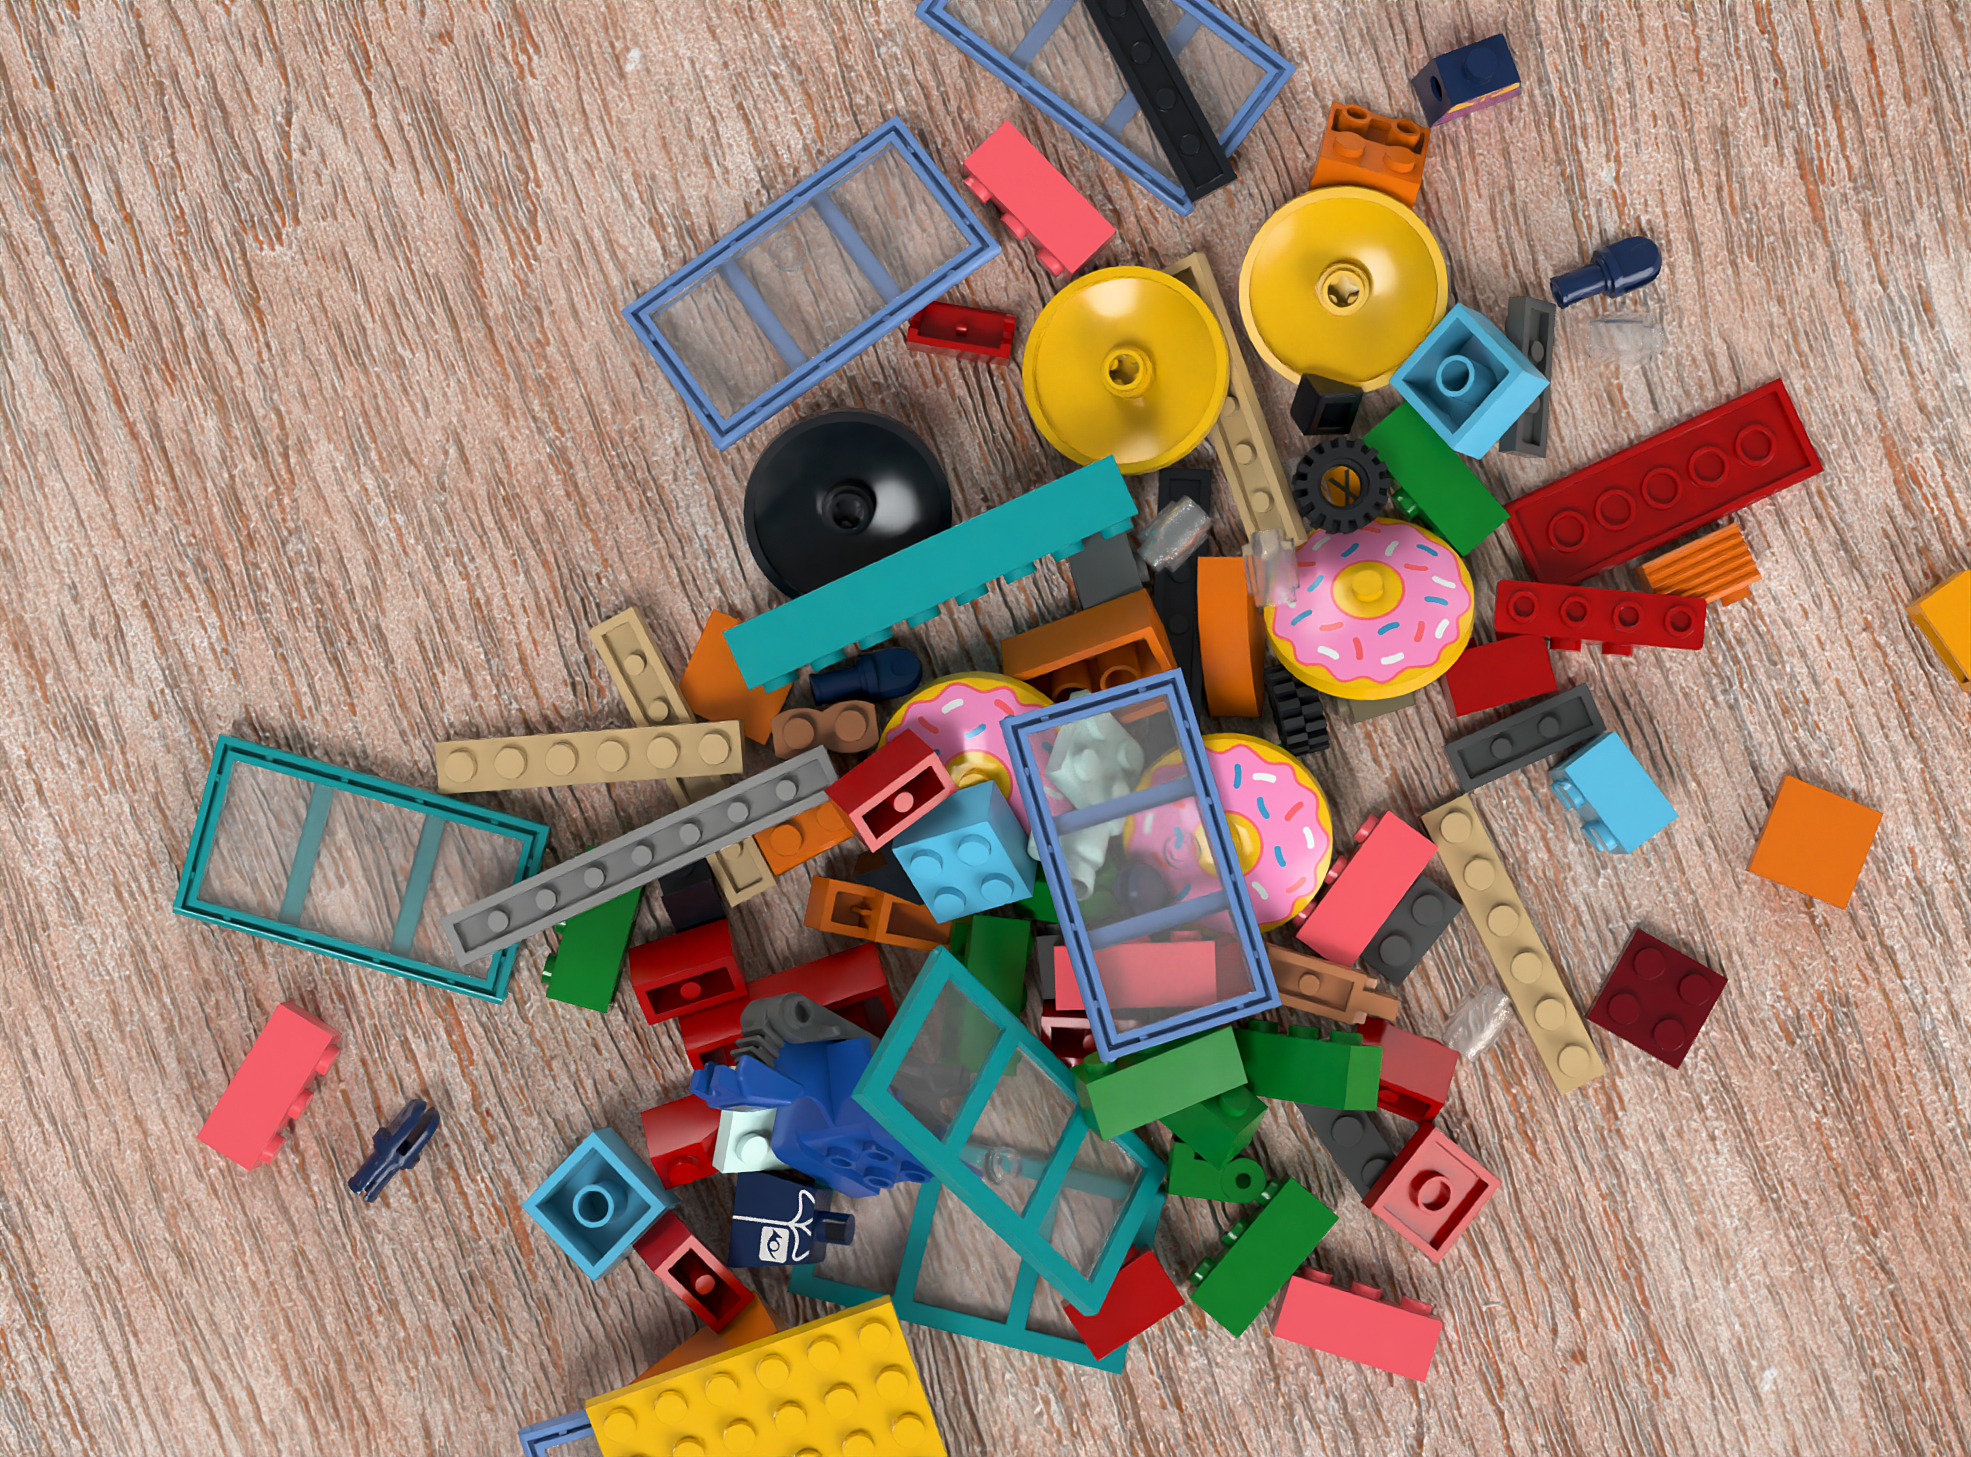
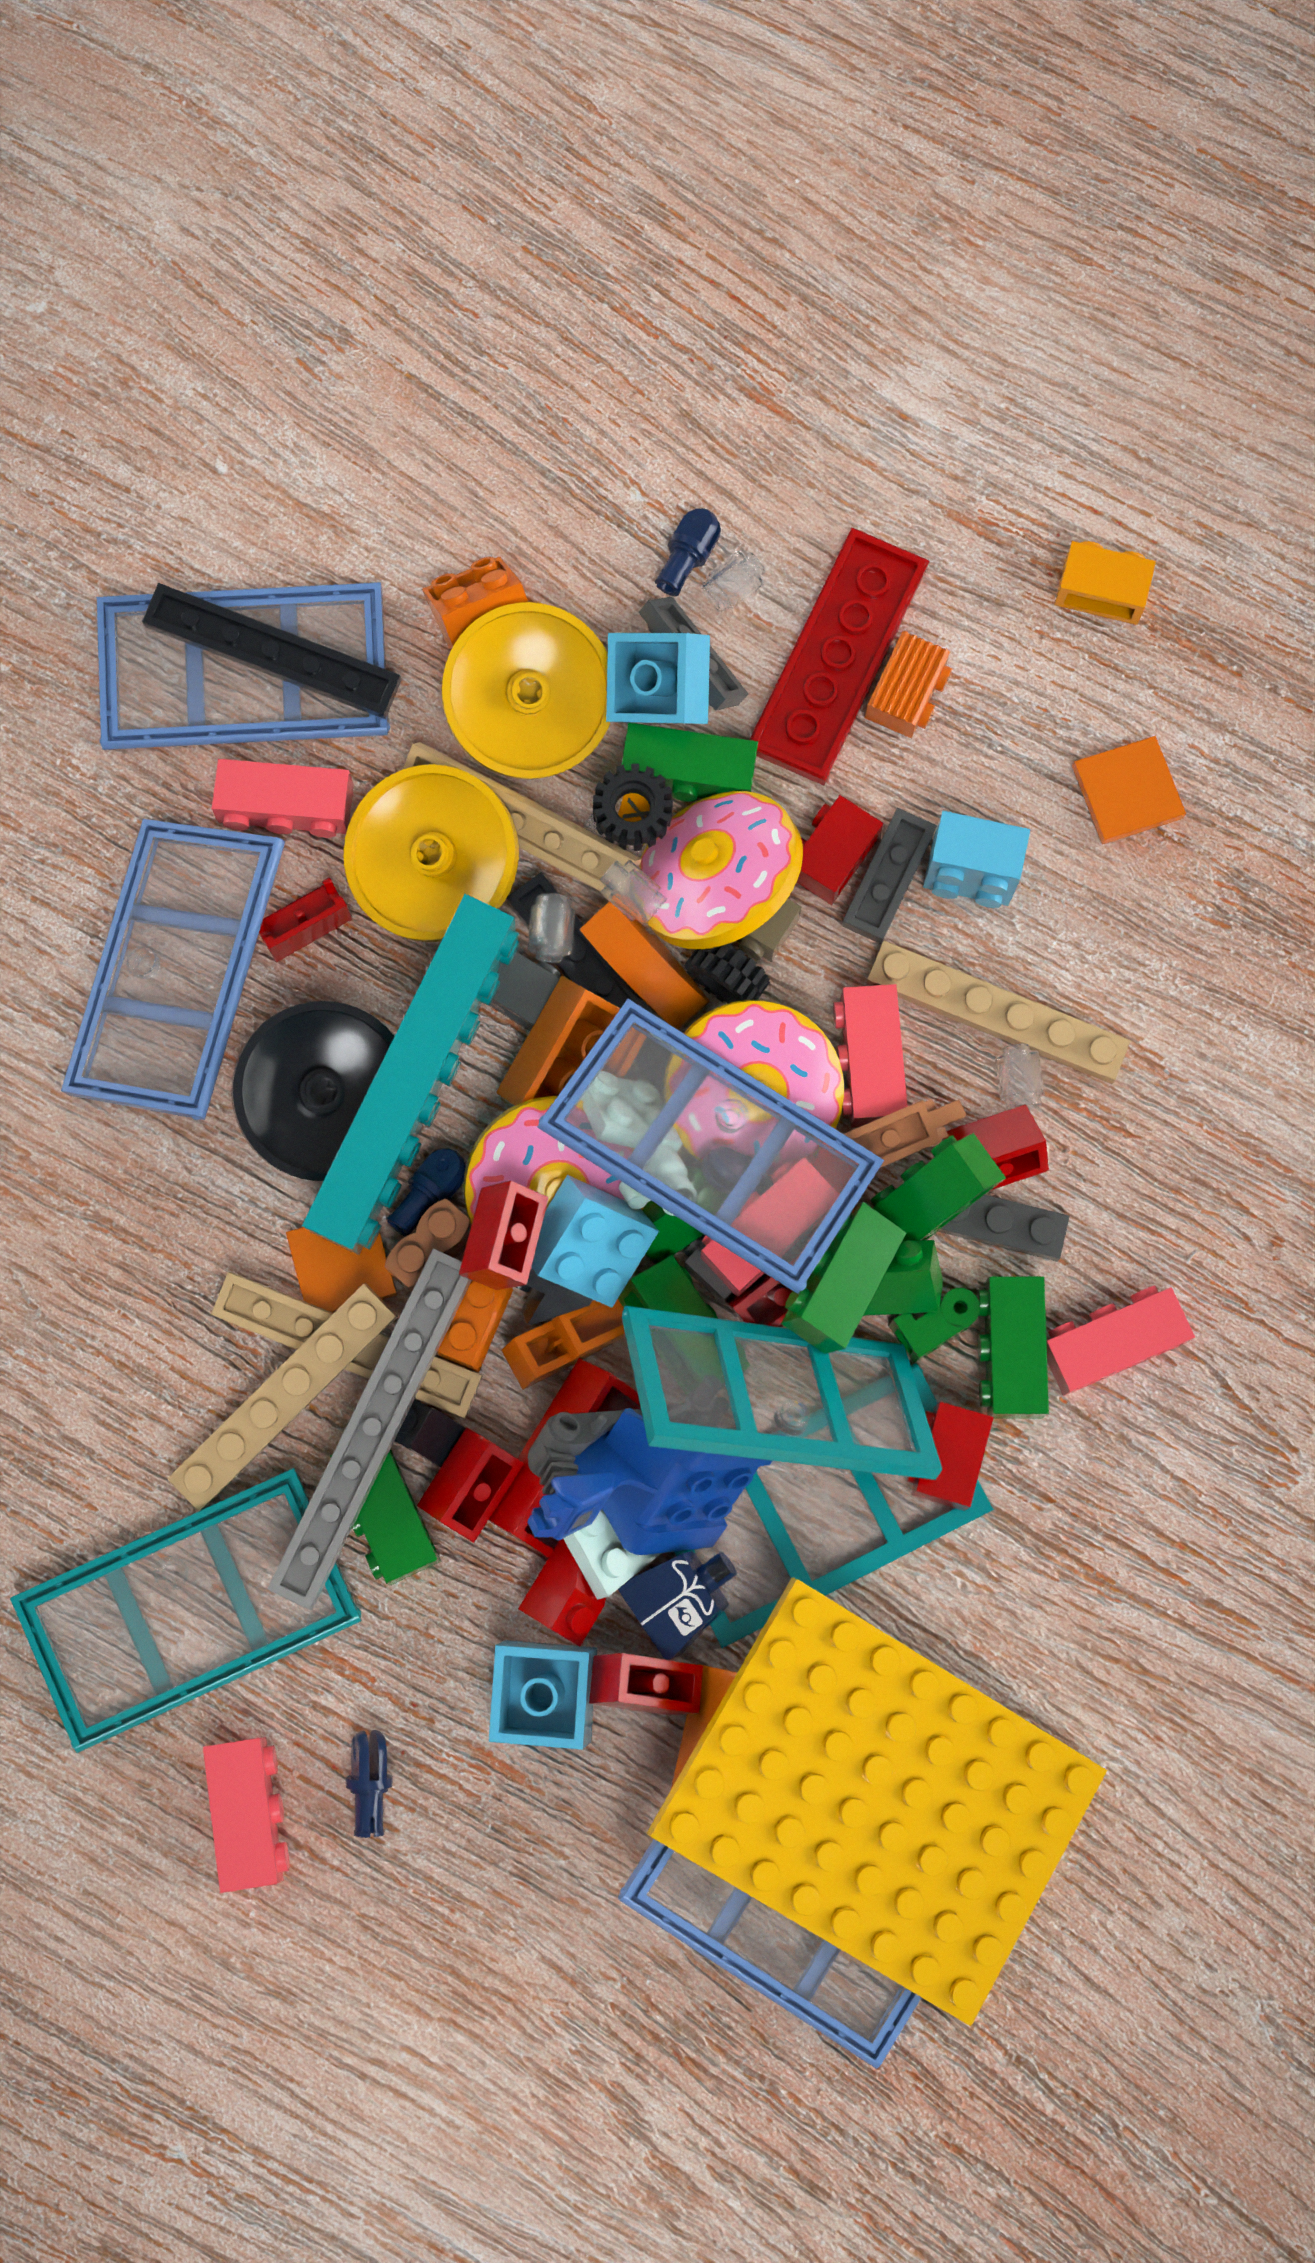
camera: 40 degrees left, 10 degrees down
(1325, 405) = (578, 773): black slope -> none
(1410, 930) = (925, 1057): dark grey plate -> none
(1431, 1192) = (1088, 1210): plate -> none
(1469, 80) = (502, 497): dark blue torso -> none
(1599, 617) = (870, 758): red bracket -> none
(1656, 998) = (1119, 969): dark red plate -> none

